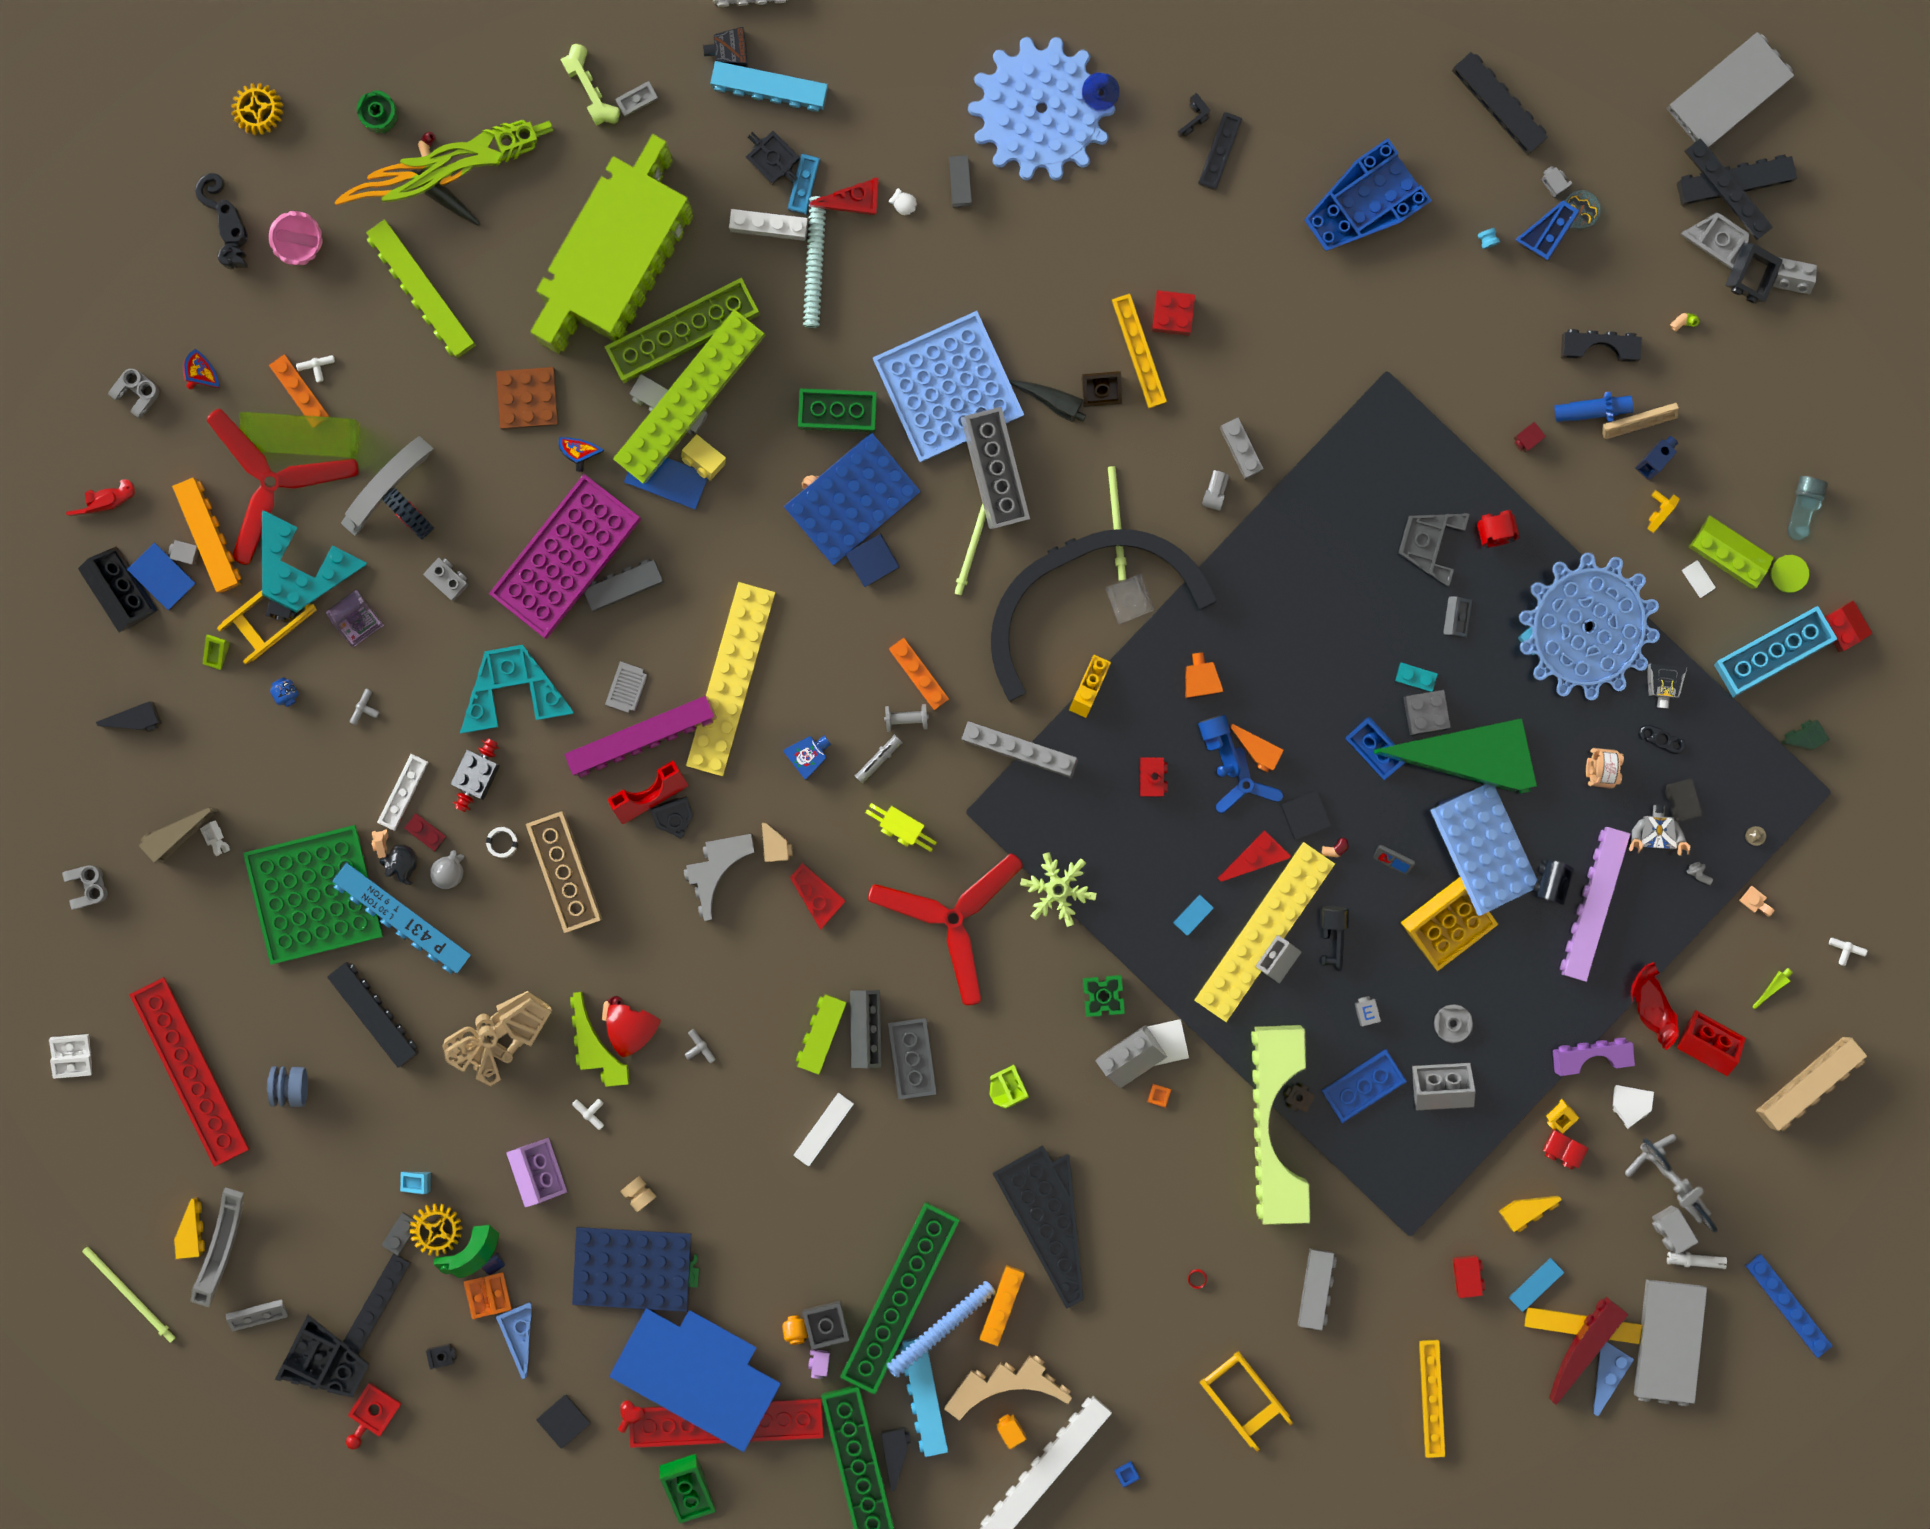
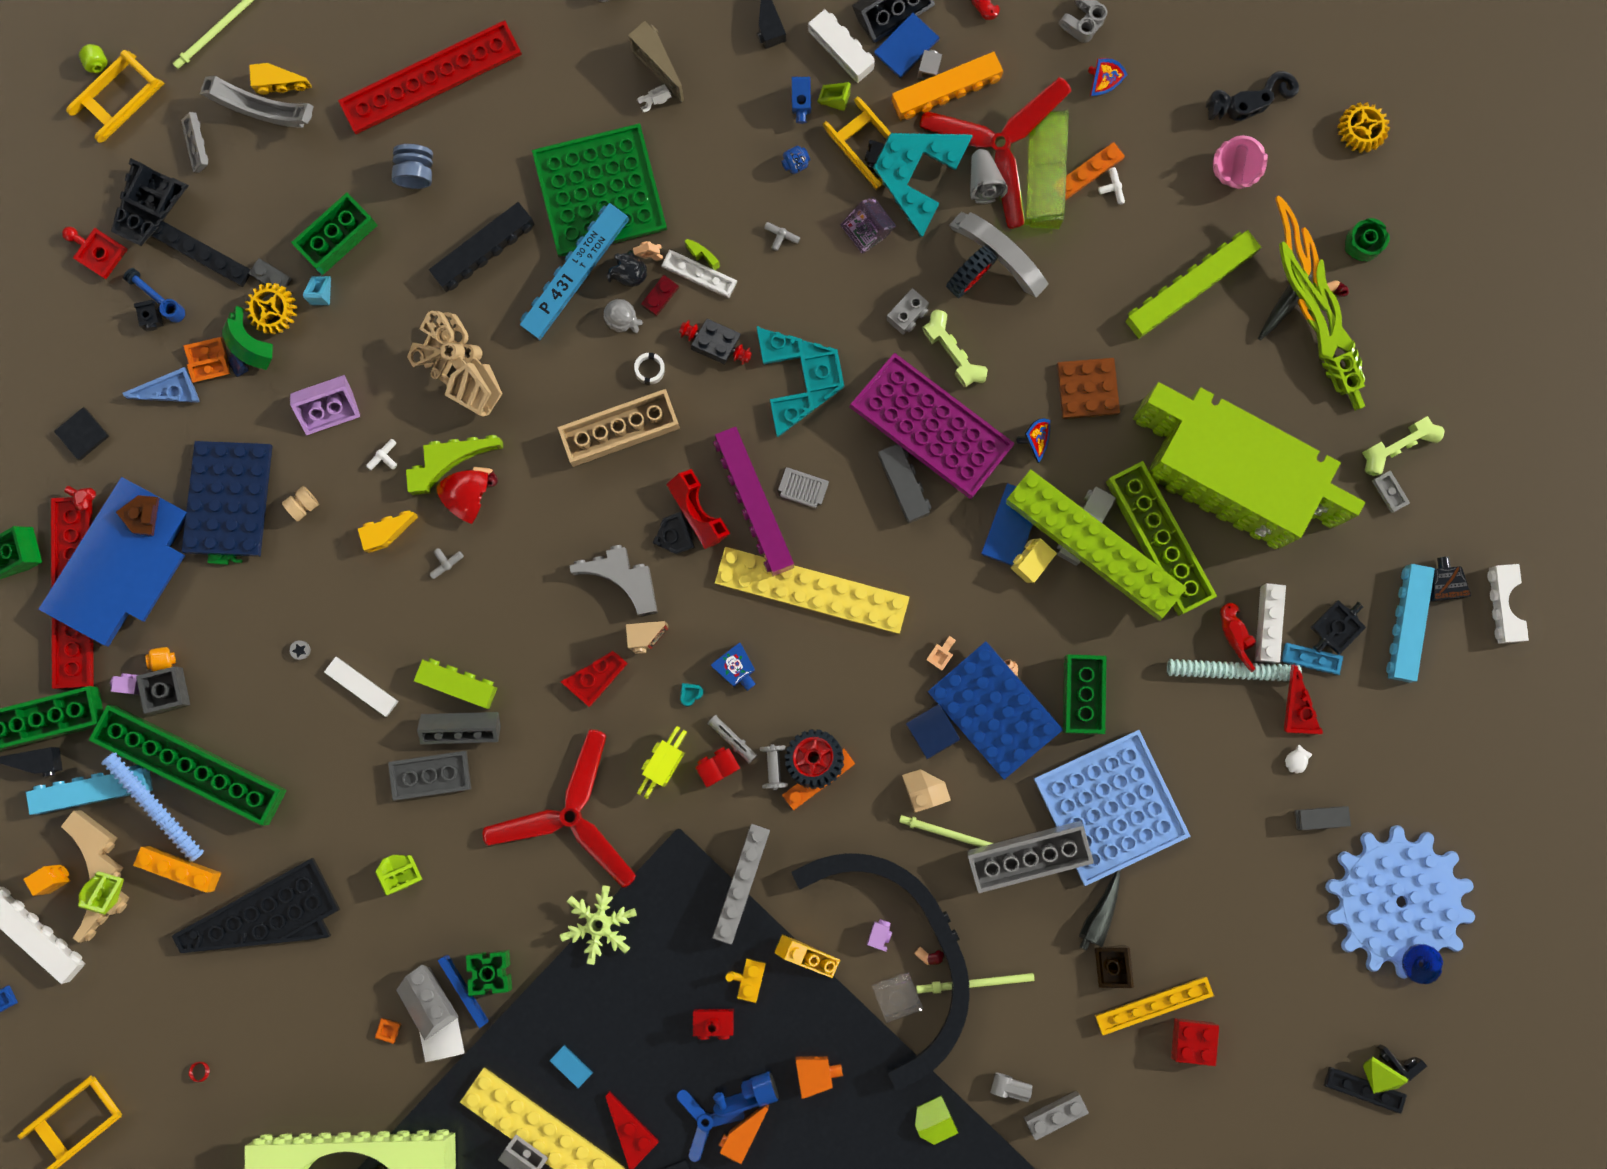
camera: 90 degrees right, 5 degrees down
(161, 644) = (841, 45): none -> white brick
(164, 1425) = (93, 58): none -> lime head
(211, 685) = (801, 93): none -> blue torso
(222, 1417) = (111, 123): none -> yellow piece
(306, 497) = (985, 178): none -> light grey cone
(358, 1166) = (334, 233): none -> green brick
(380, 792) = (699, 251): none -> lime slope
(400, 1374) = (133, 276): none -> blue piece
(466, 551) = (935, 332): none -> yellowish green plate
(649, 1352) = (140, 514): none -> reddish brown plate
(670, 1111) = (381, 534): none -> yellow slope
(777, 258) = (1237, 633): none -> red animal
(786, 1192) = (300, 650): none -> light grey tile
(797, 552) = (940, 656): none -> light nougat plate
(833, 801) = (690, 693): none -> teal tile
(906, 773) = (717, 767): none -> red brick
(912, 672) = (809, 745): none -> wheel
(930, 569) = (925, 790): none -> tan slope
(1023, 1376) = (100, 893): none -> lime slope
(1069, 615) = (879, 935): none -> lavender brick
(1093, 567) = (930, 959): none -> arm
(1112, 742) = (749, 980): none -> yellow plate
(1121, 1021) = (462, 990): none -> blue tile
(1207, 134) = (1382, 1077): none -> lime slope
(1246, 564) = (934, 1121): none -> lime slope

